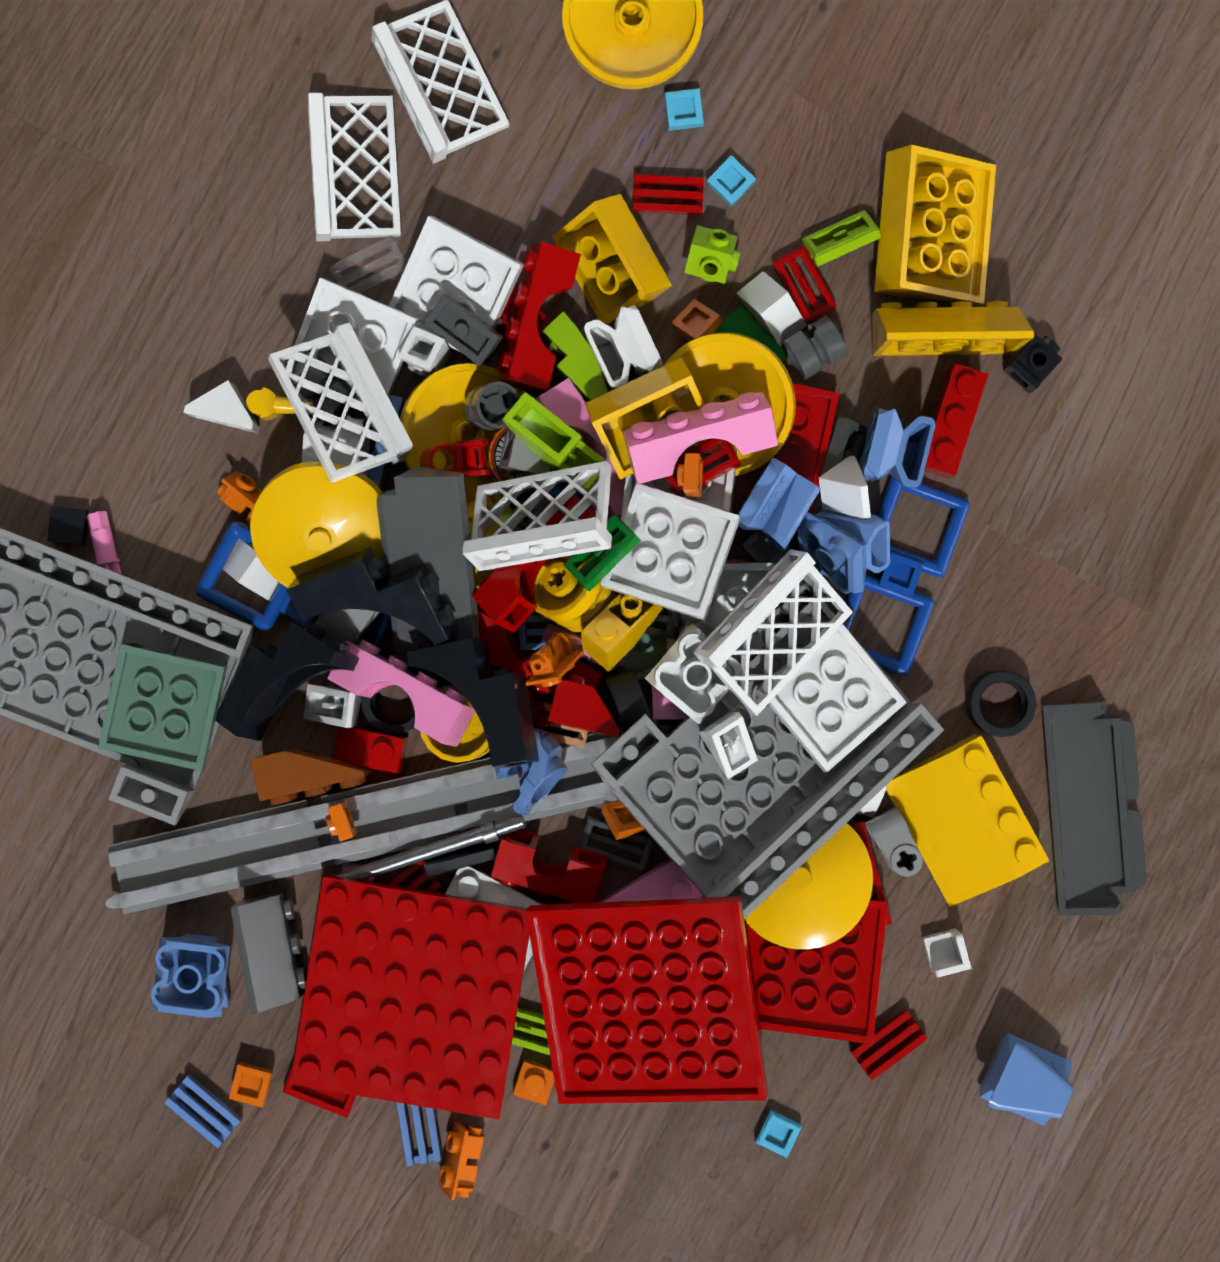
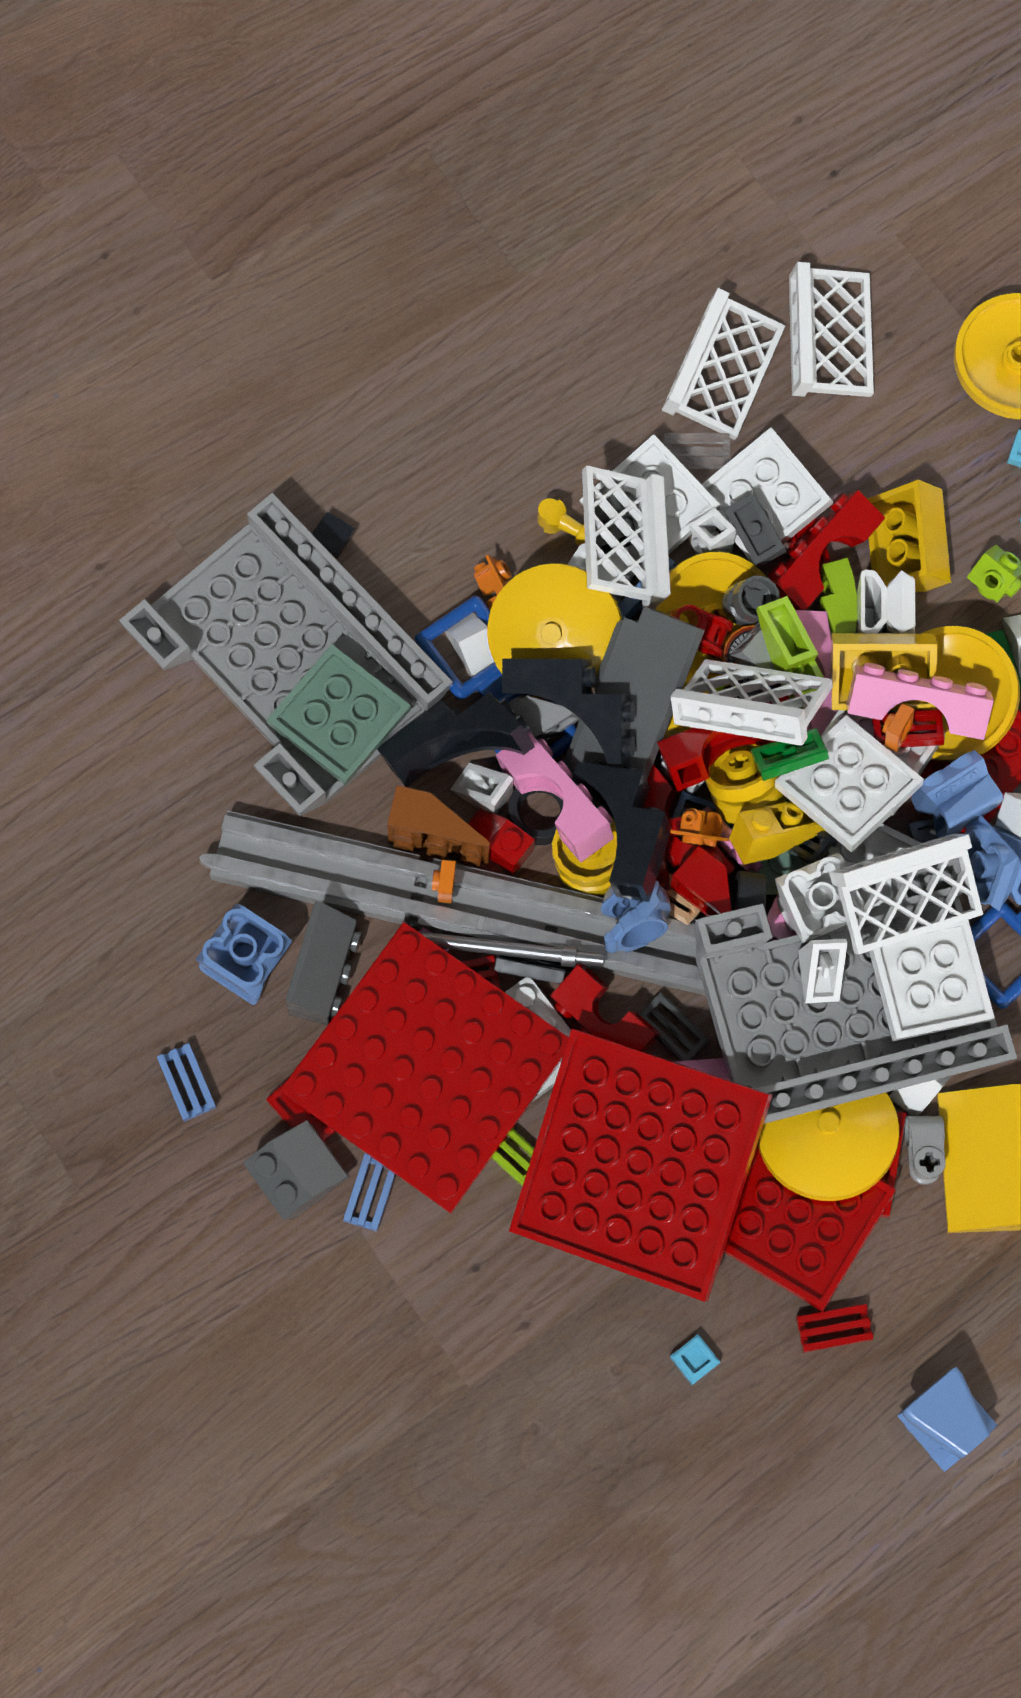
camera: 20 degrees right, 15 degrees down
(103, 541) = (357, 555): bright pink piece -> none
(225, 407) = (515, 502): white slope -> none
(251, 1084) = (242, 1078): orange plate -> none
(341, 1149) = (296, 1170): none -> dark grey slope
(457, 1175) = (401, 1226): orange hinge -> none
(534, 1082) = (495, 1203): orange plate -> none
(621, 820) = (692, 1006): orange plate -> none
(673, 181) = (987, 501): red tile -> none
(696, 321) = (957, 617): orange plate -> none
(946, 952) = (927, 1268): white panel -> none

